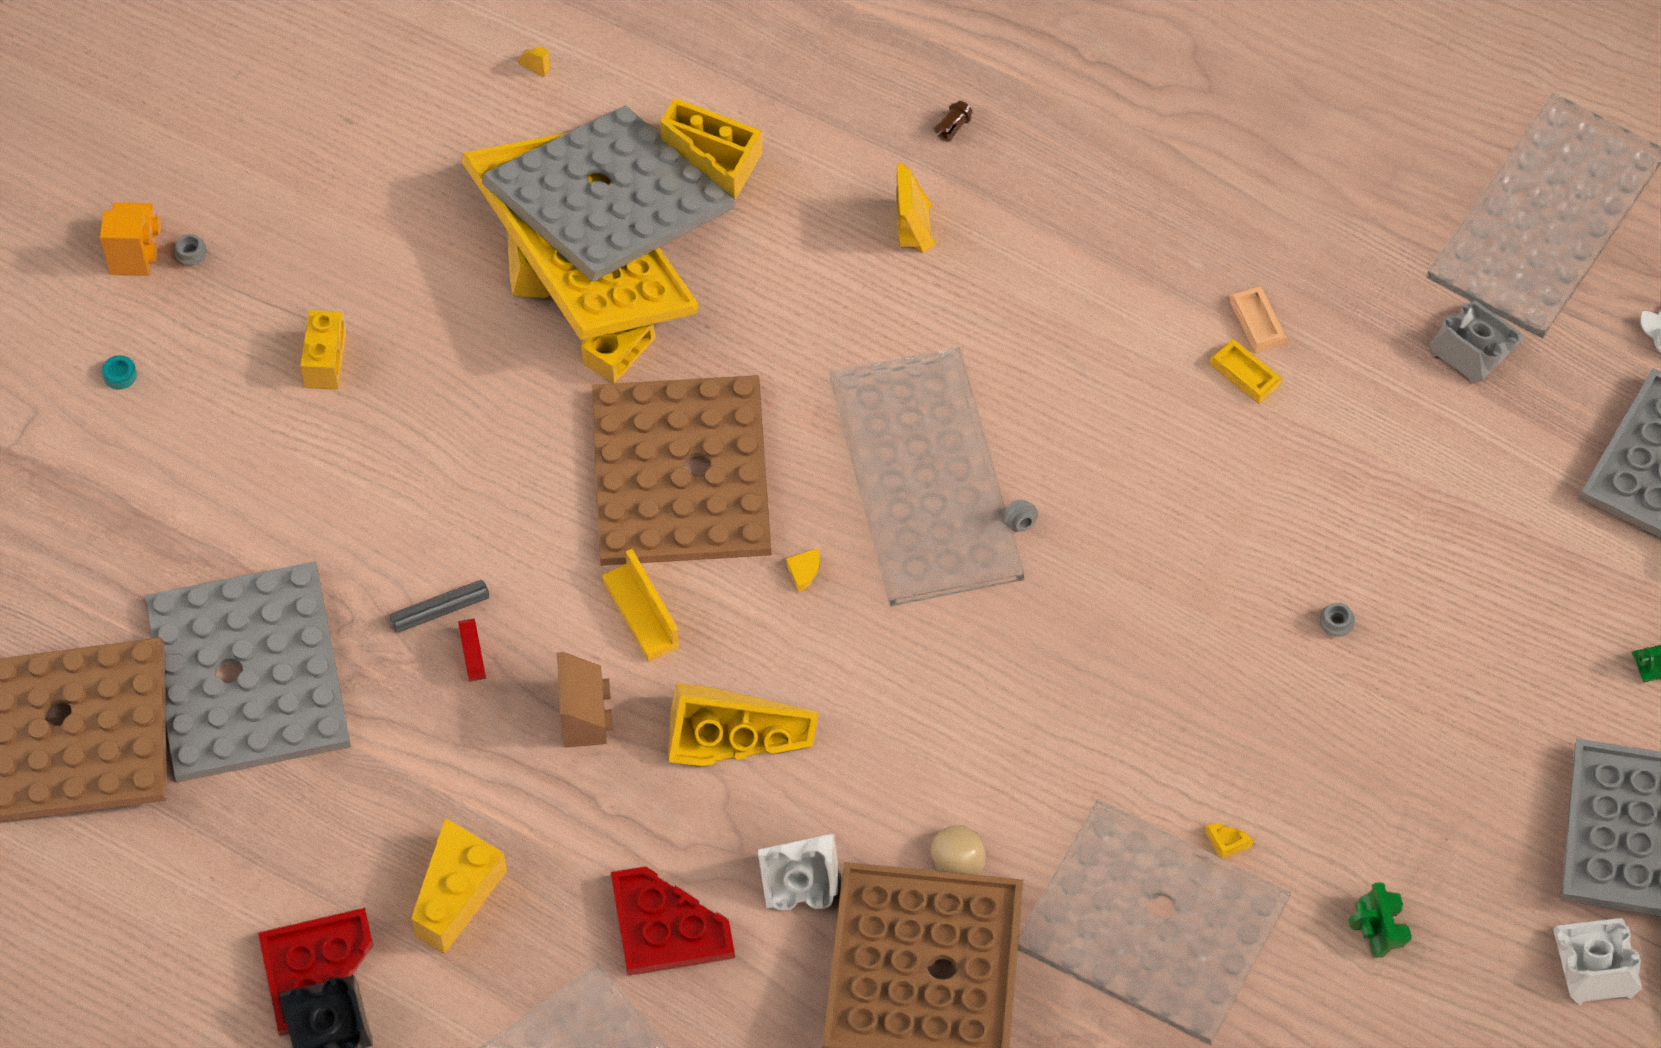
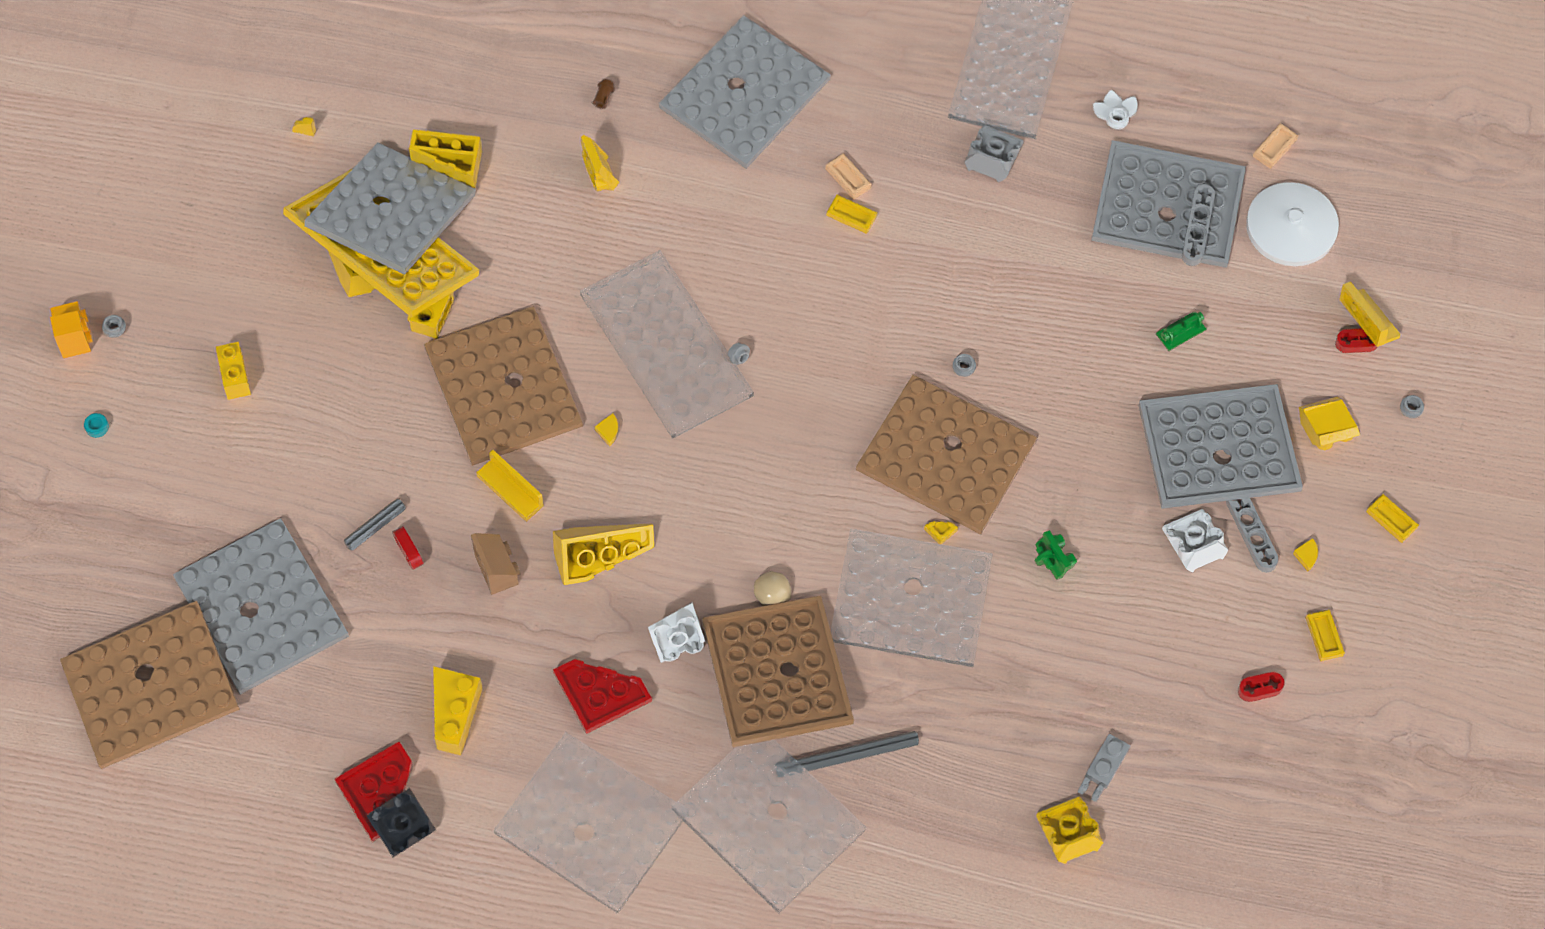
camera: 20 degrees left, 5 degrees up
(1140, 206) = (749, 118): none -> light grey plate
(1271, 780) = (957, 483): none -> medium nougat plate

